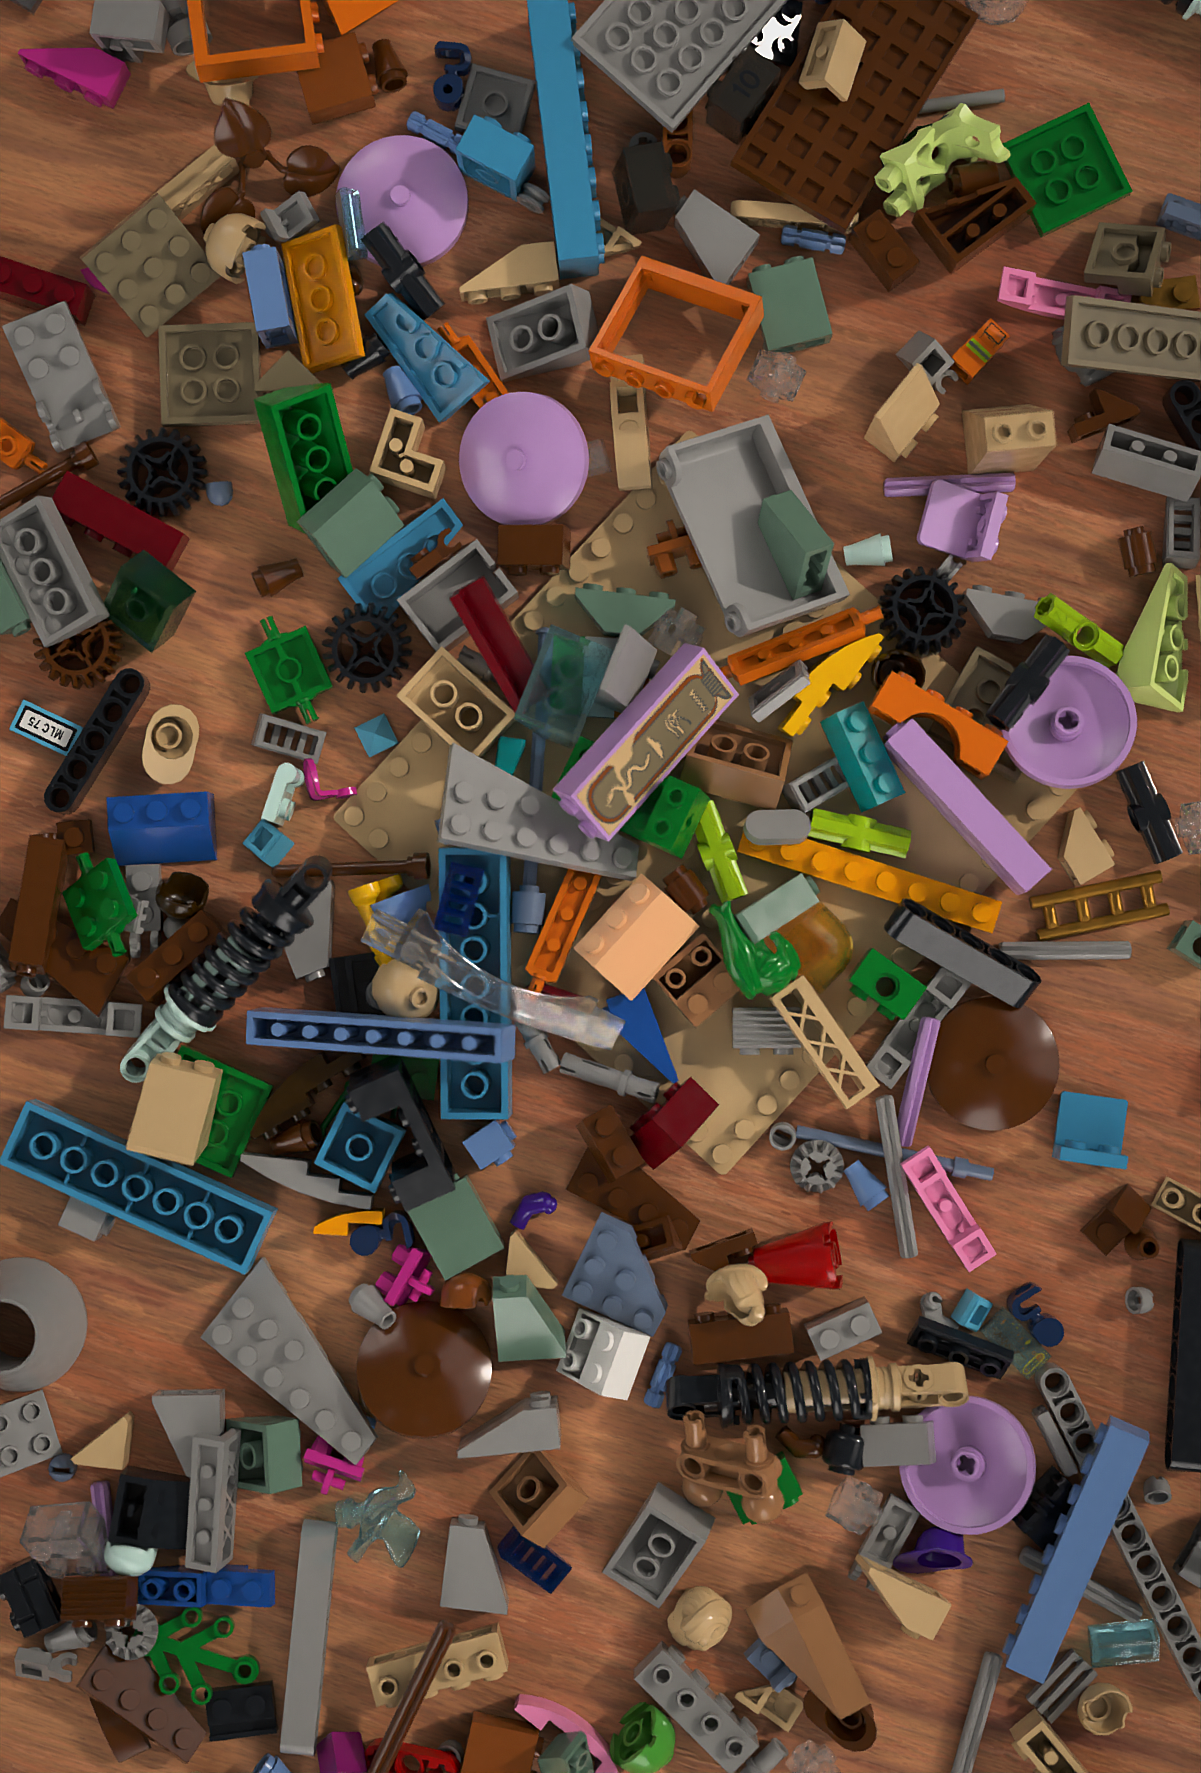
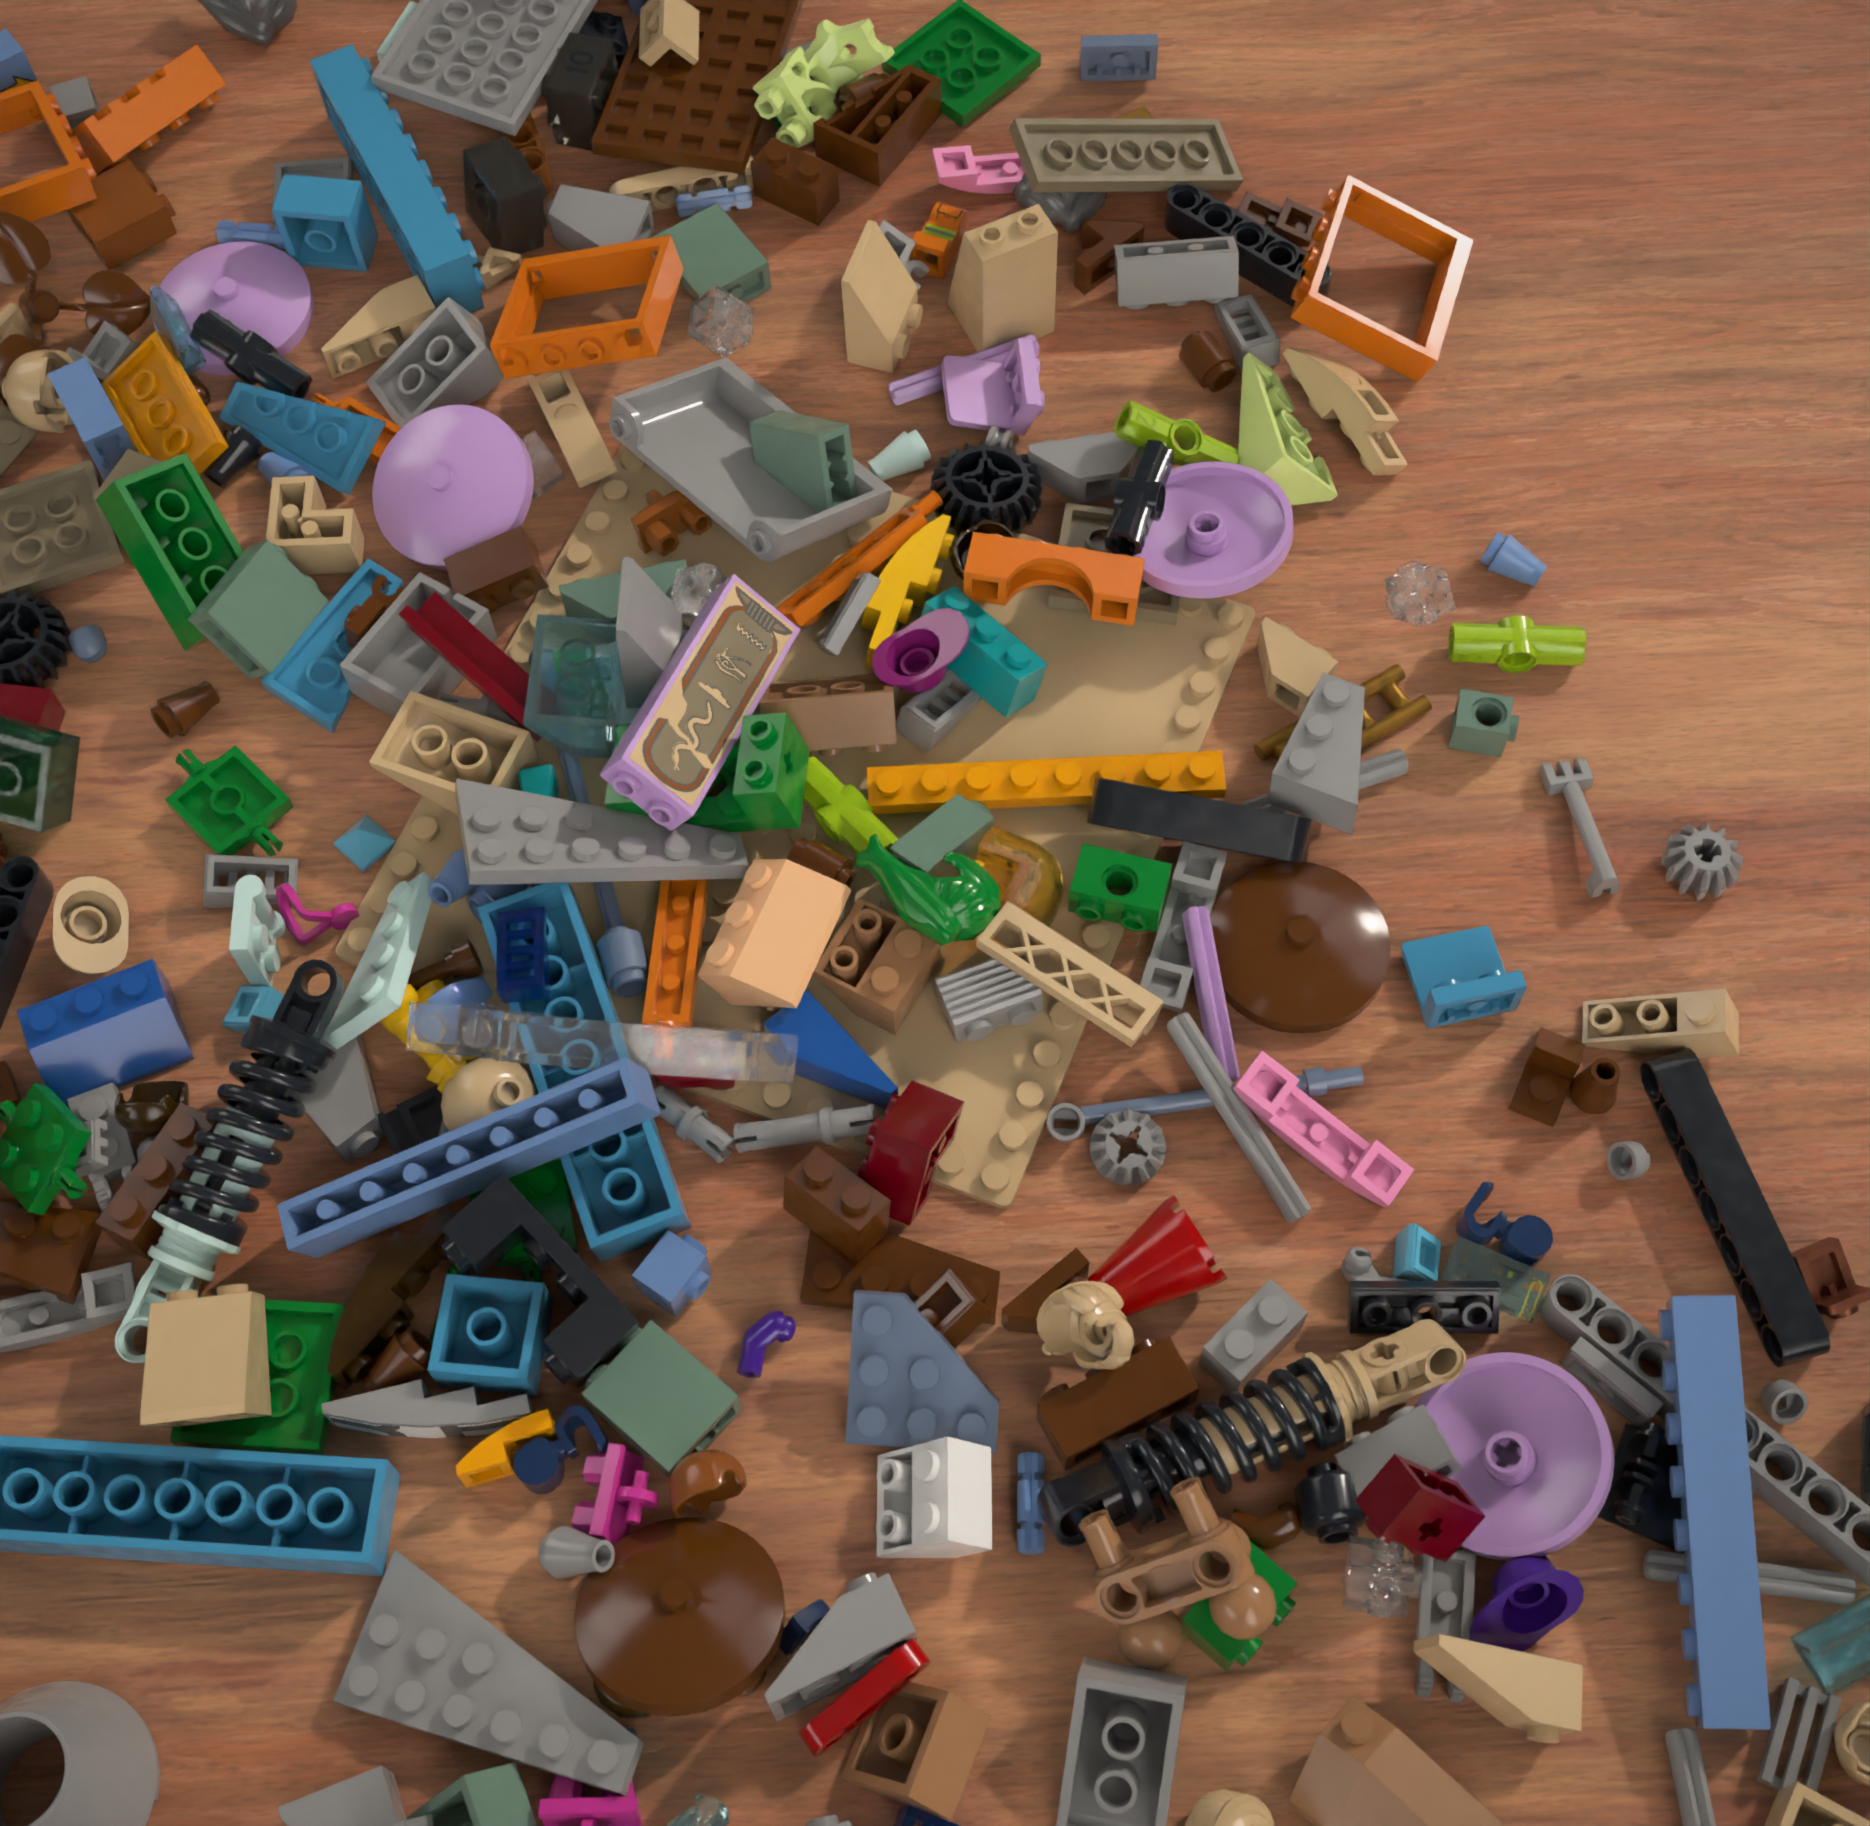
camera: 20 degrees left, 25 degrees down
(86, 1220) = (118, 1583): light grey brick -> none
(355, 637) = (331, 709): black gear -> none
(367, 855) = (385, 965): none -> light aqua wing
(388, 68) = (183, 193): reddish brown cone -> none
(429, 804) = (451, 881): none -> medium blue cone
(449, 87) = (254, 180): dark blue leg -> none
(499, 1401) = (802, 1625): none -> dark blue tile
(515, 1463) = (864, 1697): none -> red beam
(524, 1322) = (800, 1487): sand green slope -> none
(525, 1261) = (781, 1419): tan slope -> none
(533, 198) = (382, 255): light grey bush -> none
(777, 827) = (906, 756): light grey tile -> none
(818, 749) = (922, 651): none -> magenta piece
(859, 833) = (1012, 737): lime piece -> none
(866, 1185) = (1204, 1147): medium blue cone -> none
(894, 1486) = (1418, 1509): none -> dark red brick
(964, 807) = (1131, 655): lavender brick -> none
(1071, 939) = (1323, 756): none -> light grey wedge
(1128, 258) = (1067, 97): dark tan plate -> none
(1149, 812) = (1351, 606): black piece -> none

